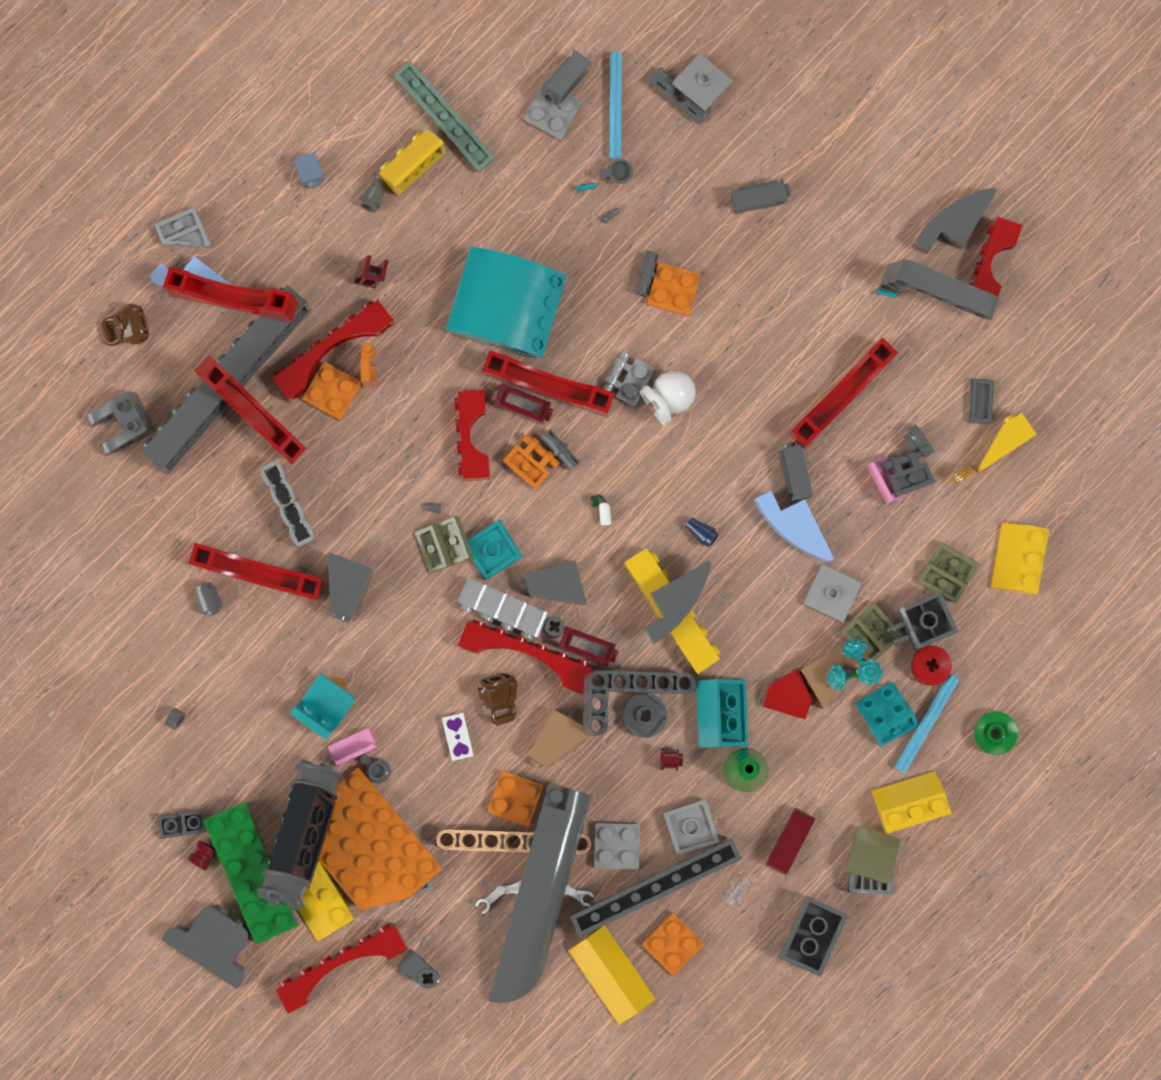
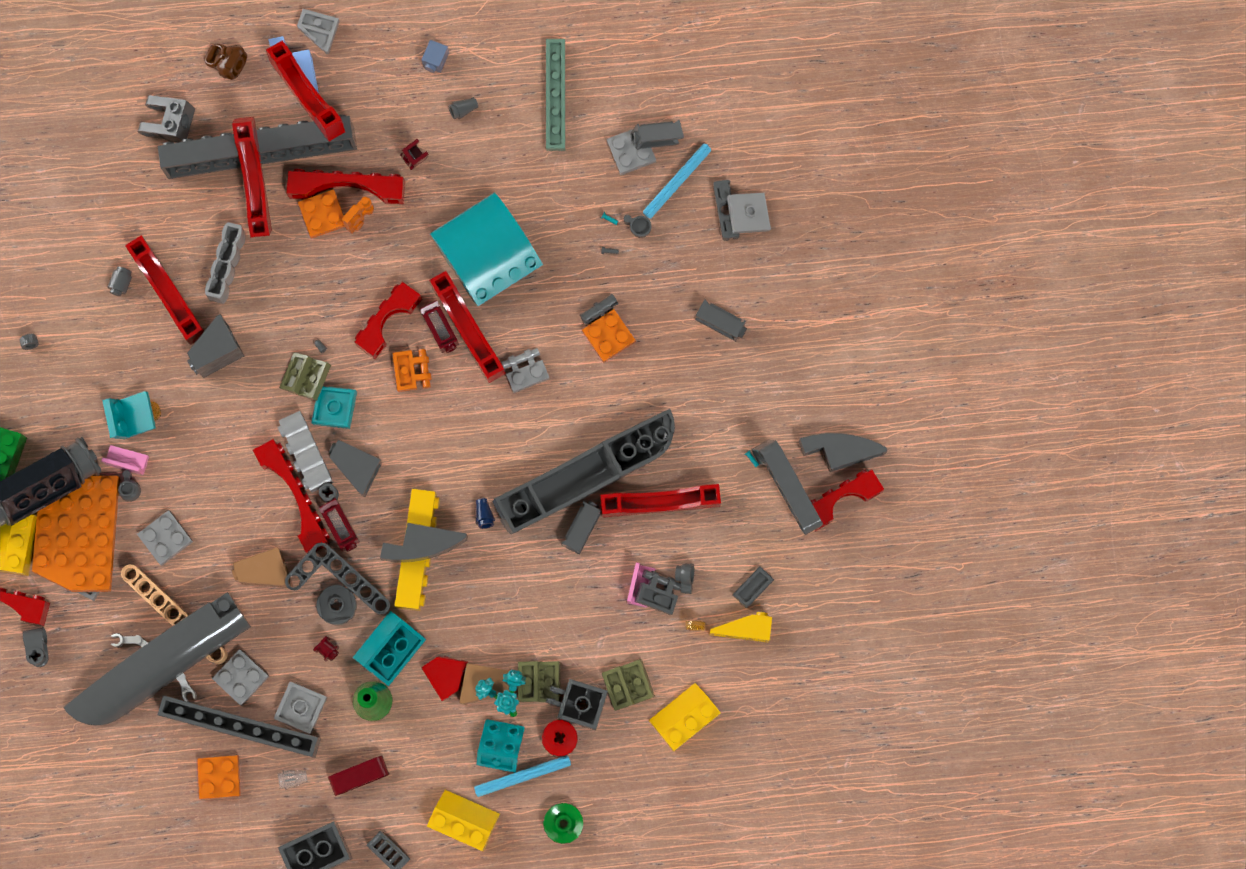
camera: 45 degrees right, 5 degrees down
(412, 161) = (506, 106): yellow slope -> none
(446, 784) = (165, 538): none -> light grey plate
(457, 737) = (200, 512): white tile -> none
(498, 694) = (251, 506): reddish brown piece -> none
(515, 798) = (201, 585): orange plate -> none
(560, 449) = (437, 378): dark grey pin -> none
(604, 508) = (432, 442): white arm -> none
(612, 975) = (160, 761): yellow slope -> none
(671, 394) = (542, 402): white tile -> none
(761, 424) = (586, 473): none -> dark grey slope
(795, 526) = (550, 563): light blue slope -> none
(832, 593) = (536, 631): light grey plate -> none
(873, 855) = (405, 834): olive slope -> none

